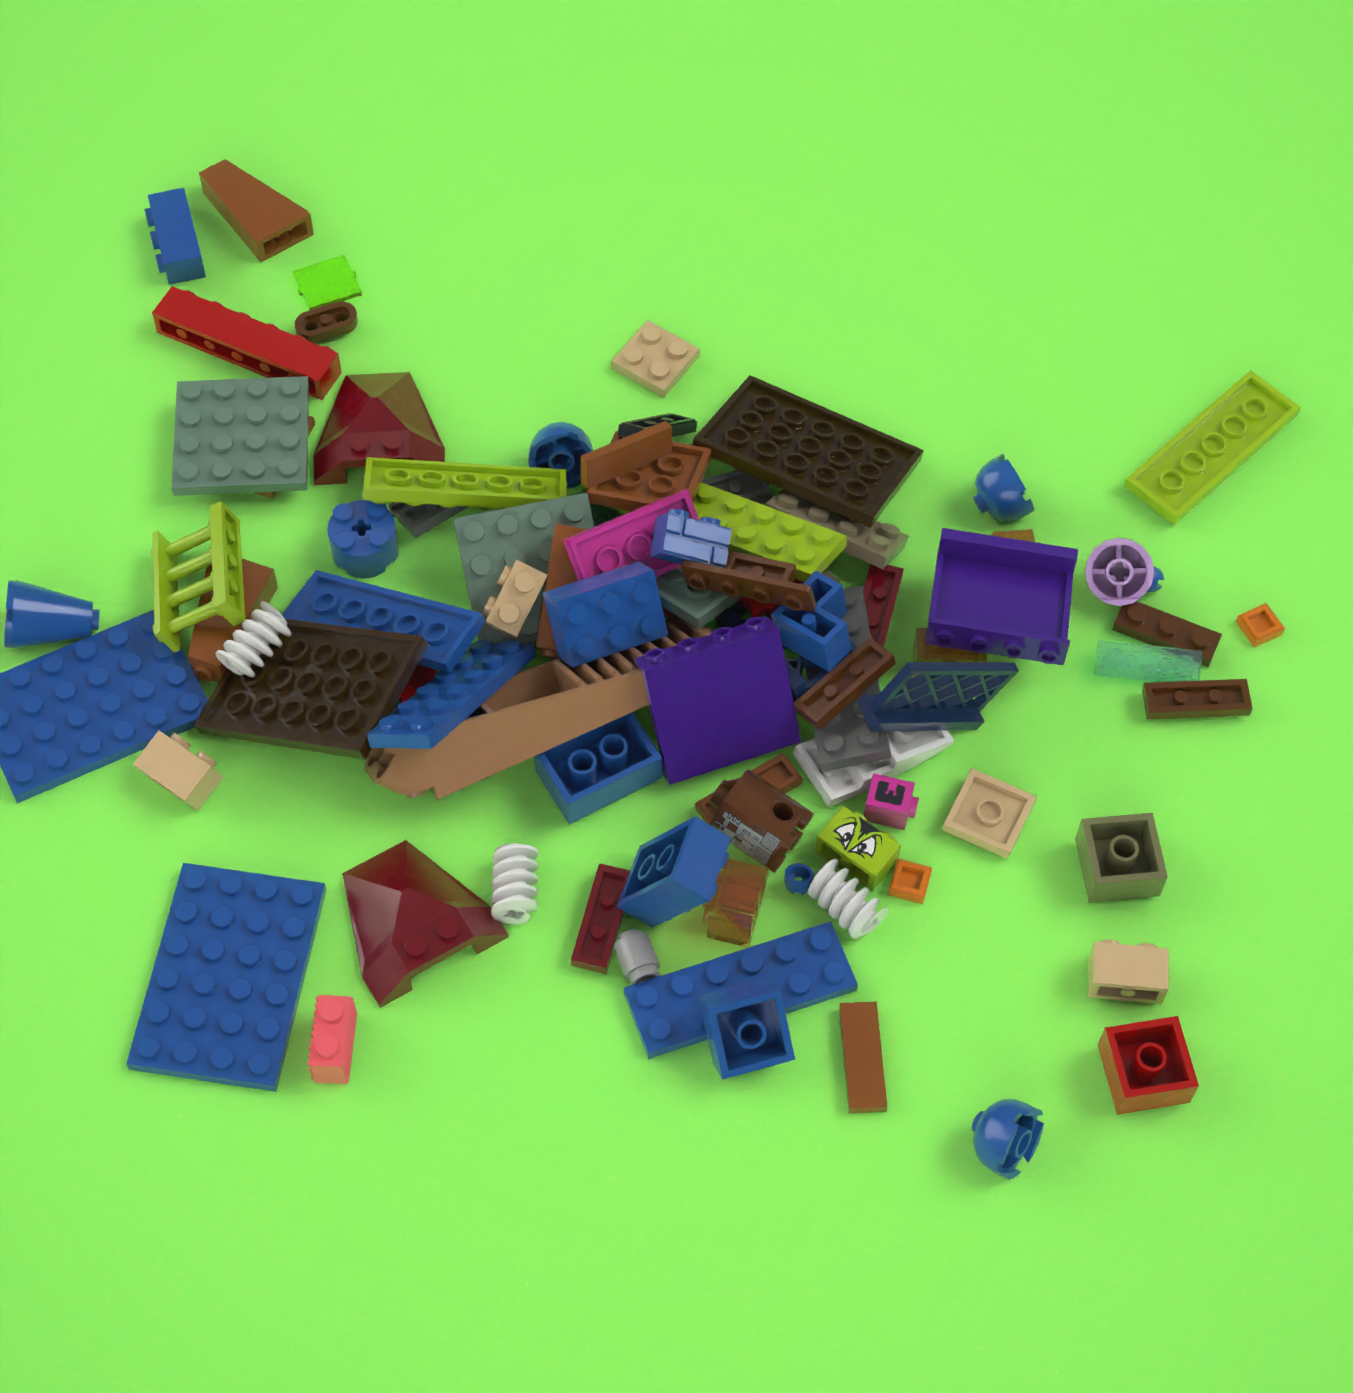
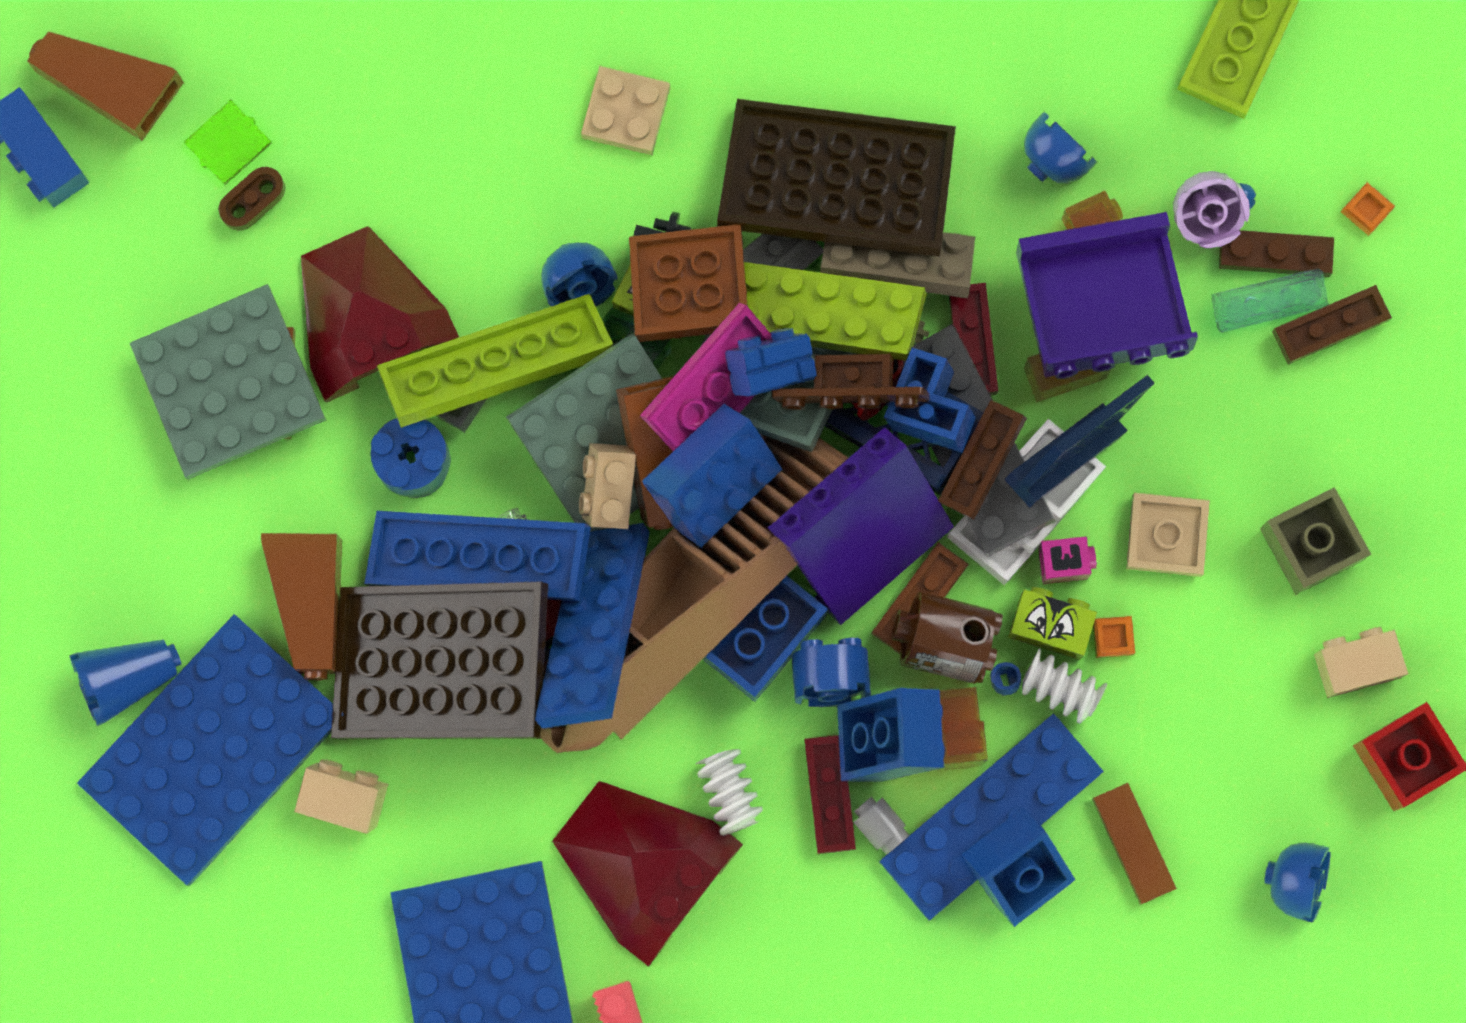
camera: 15 degrees left, 20 degrees up
(224, 579) = (295, 572): lime fence -> none
(245, 340) = (177, 256): red brick -> none
(254, 640) = (360, 633): white piece -> none
(626, 454) = (659, 275): dark orange tile -> none
(642, 811) = (830, 672): none -> blue brick
(680, 424) = (670, 212): black tile -> none

